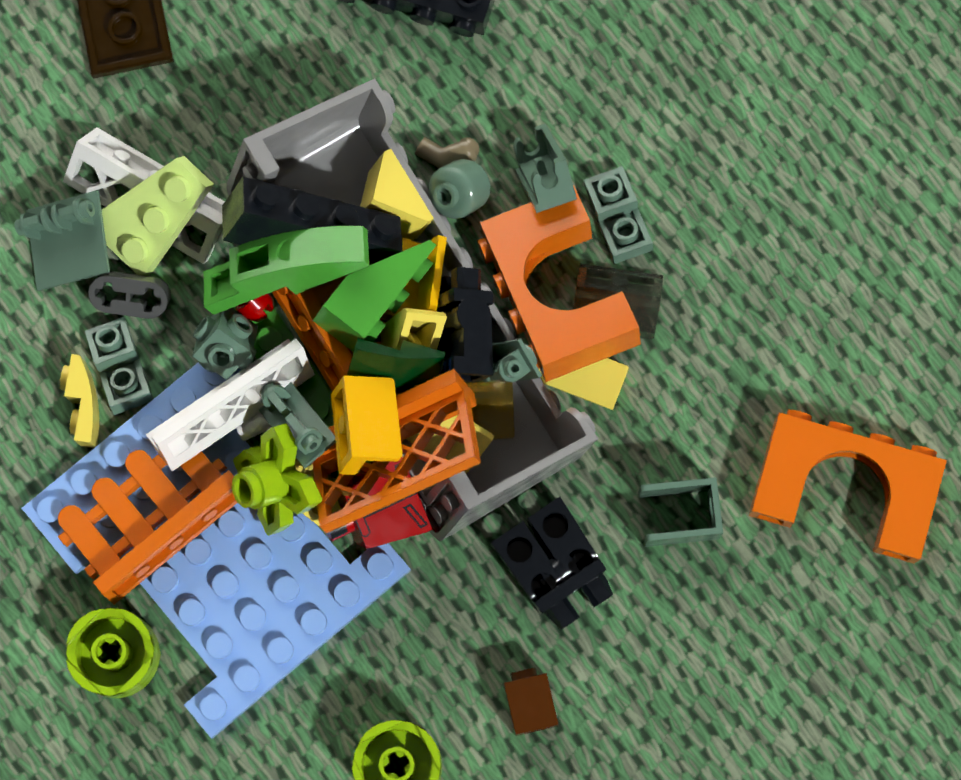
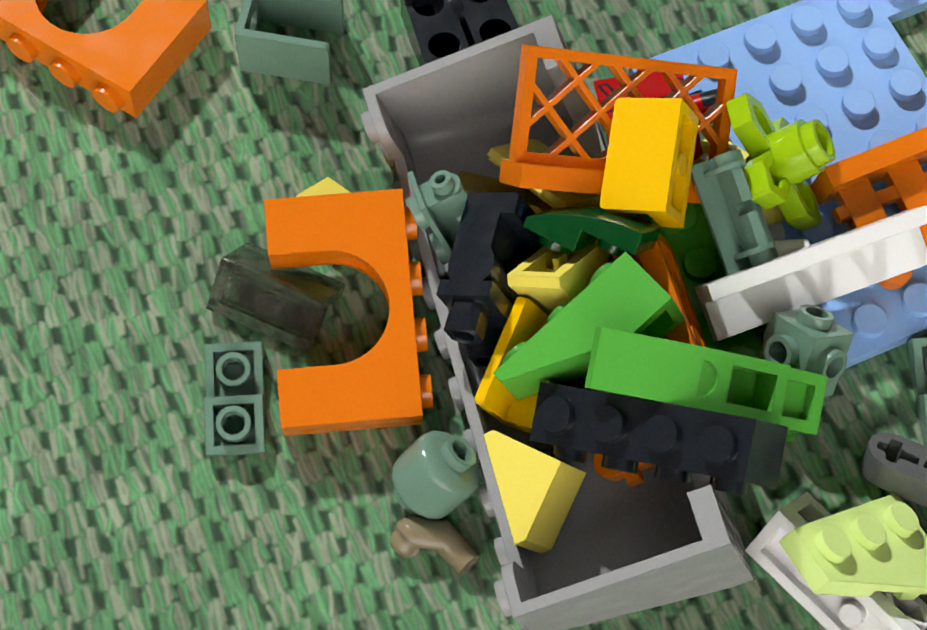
camera: 170 degrees left, 15 degrees down
(544, 172) = (316, 454): sand green hinge -> none

